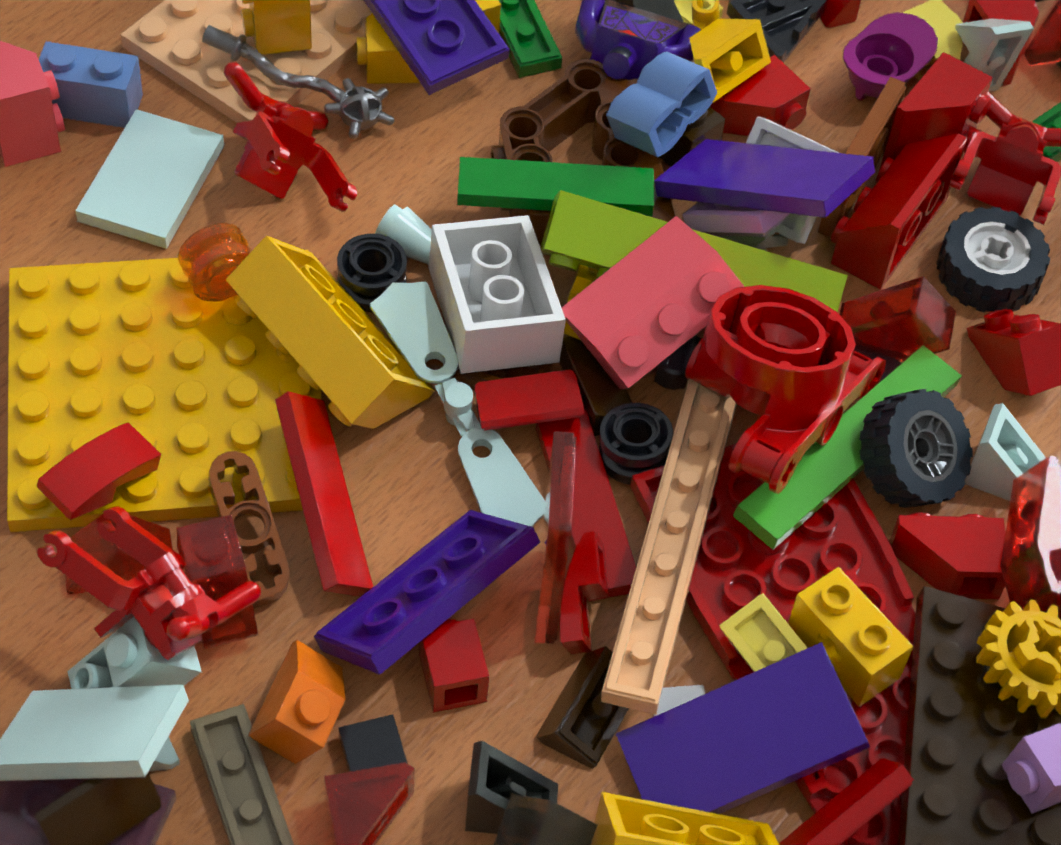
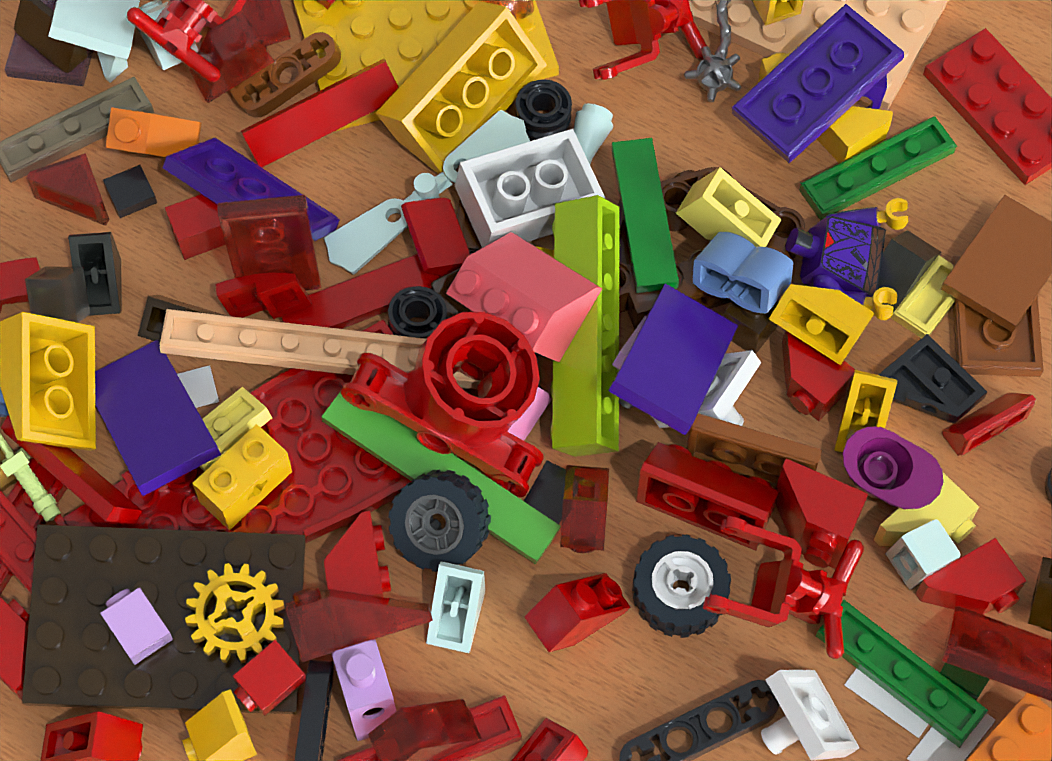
camera: 85 degrees right, 10 degrees up
(574, 109) = (723, 205): none -> light yellow slope
(818, 66) = (865, 405): none -> yellow slope

